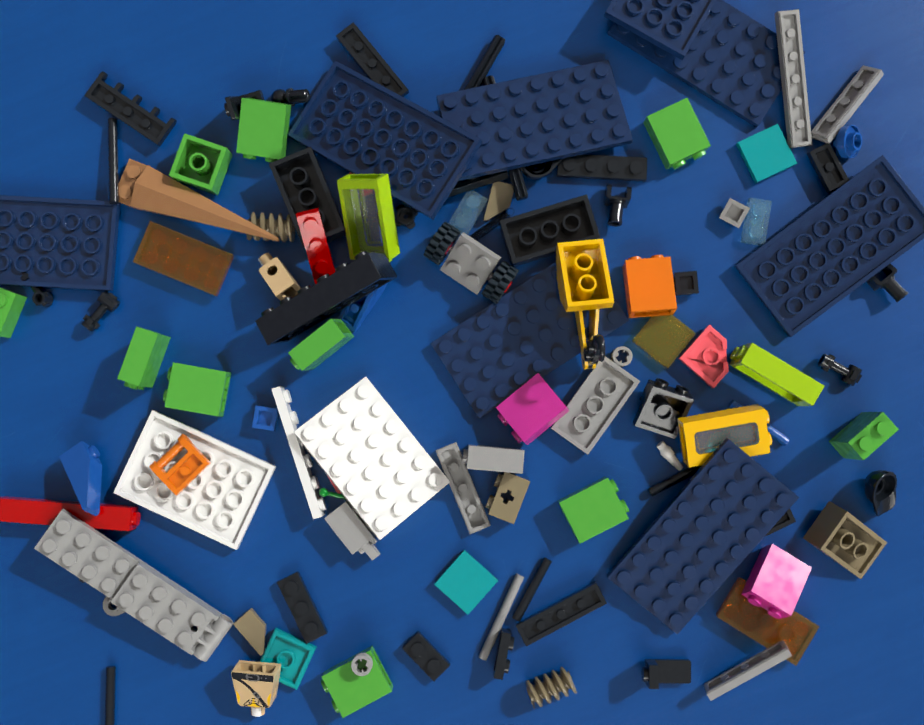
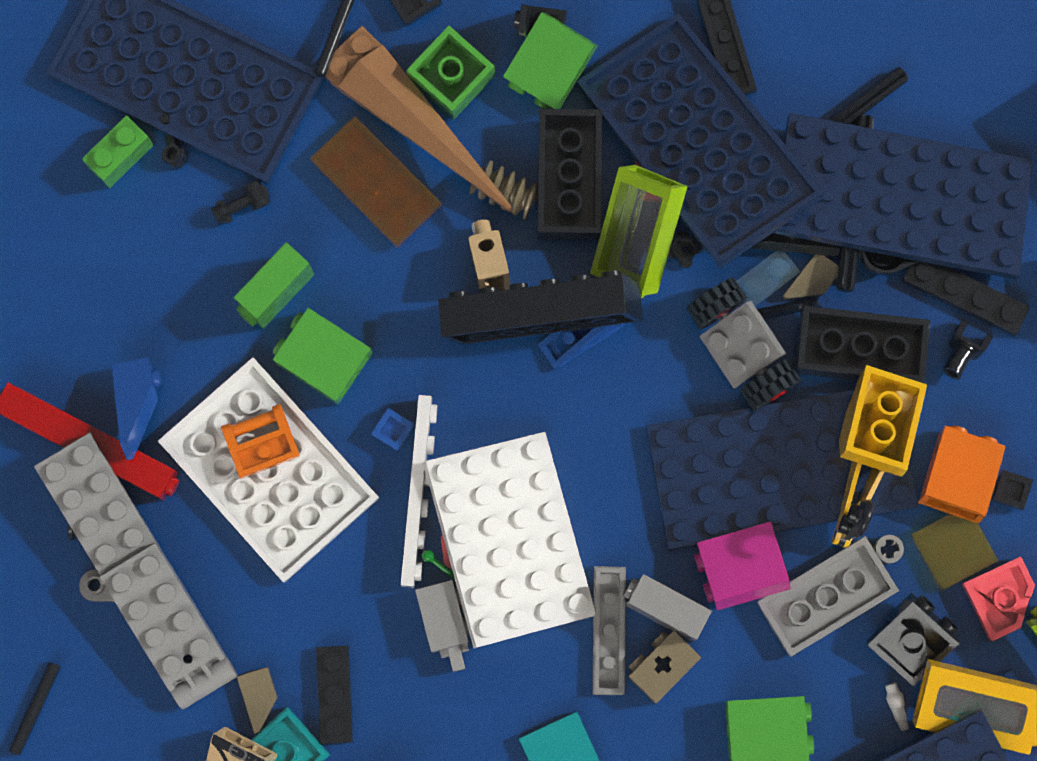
camera: 20 degrees right, 5 degrees down
(291, 96) = (601, 34): black axle -> none
(315, 243) = (556, 235): red plate -> none
(320, 345) = (506, 366): bright green brick -> none
(669, 482) = (886, 740): black bar -> none

